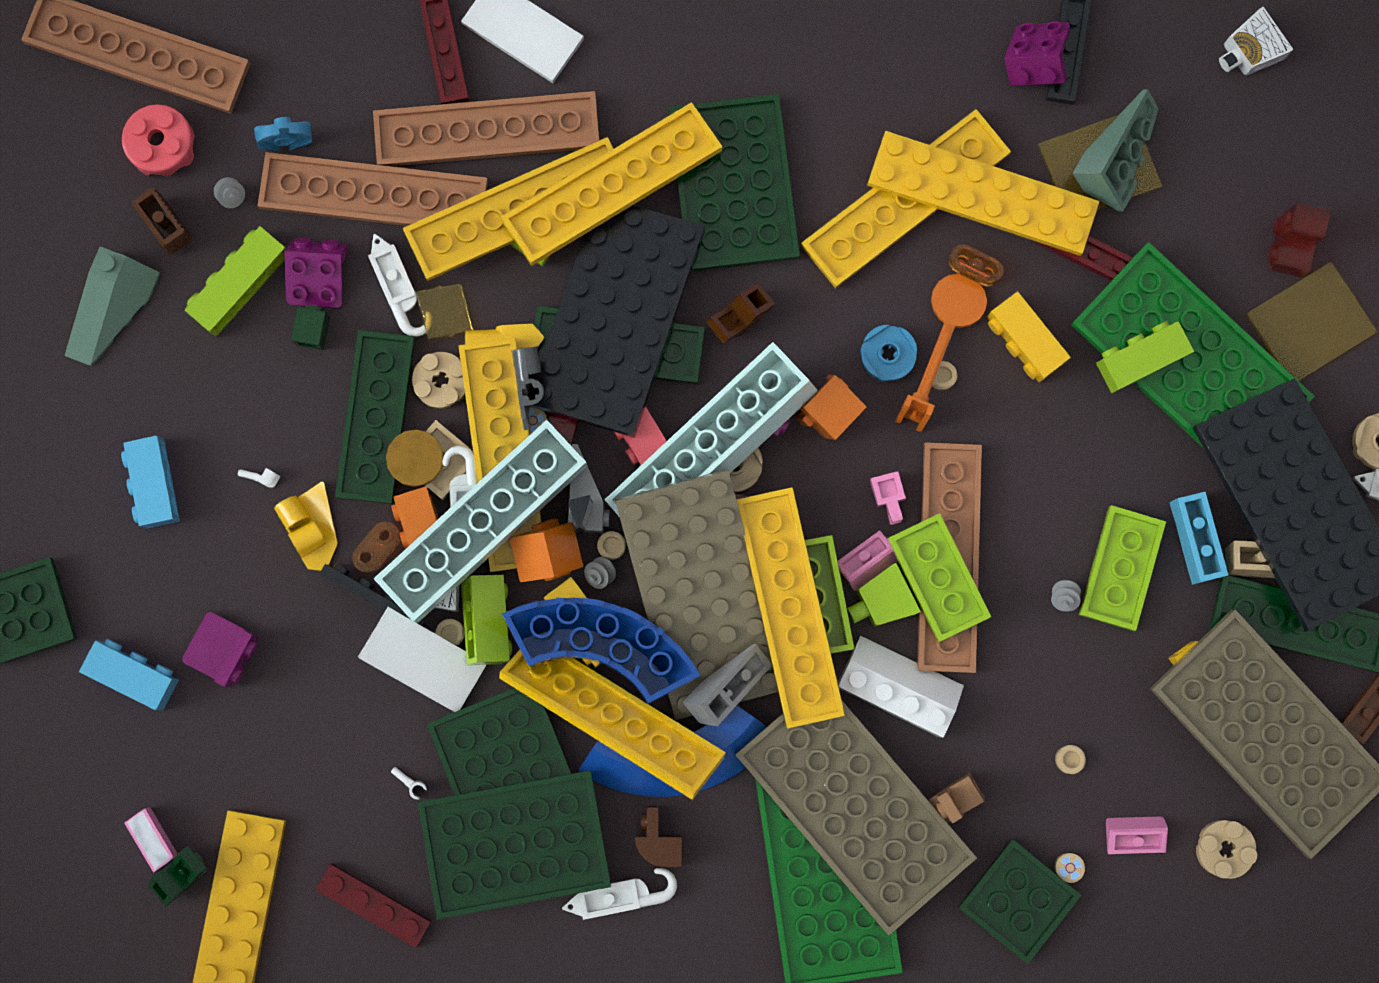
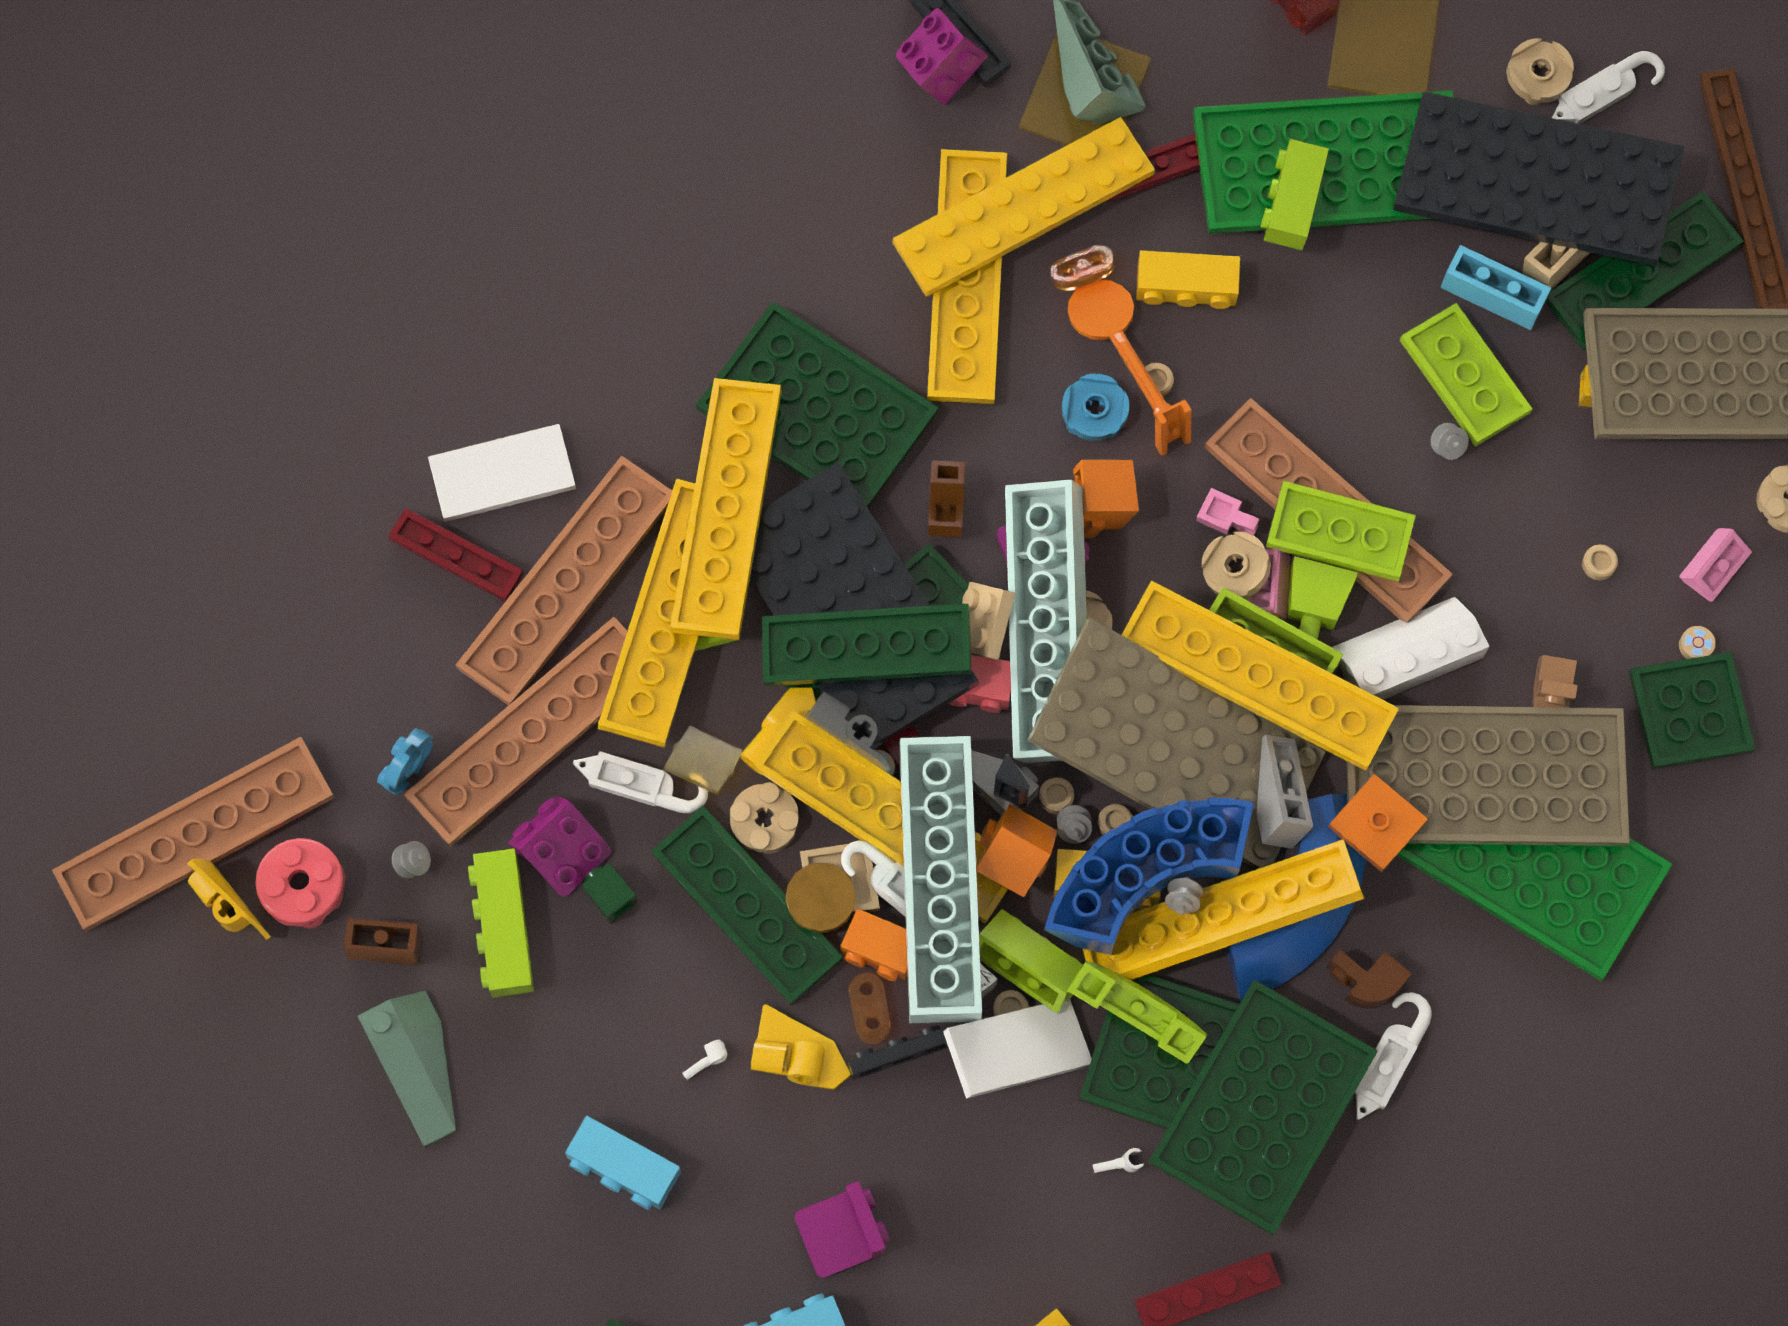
camera: 50 degrees left, 10 degrees down
(108, 108) = (218, 894): none -> yellow panel
(511, 714) = (1139, 1008): none -> lime slope
(594, 347) = (866, 645): none -> dark green plate
(601, 683) = (1183, 895): none -> light grey wheel
(626, 595) = (1112, 817): none -> tan tile
(678, 404) = (988, 618): none -> tan plate
(759, 764) = (1377, 822): none -> orange plate
(870, 542) = (1255, 564): none -> tan plate

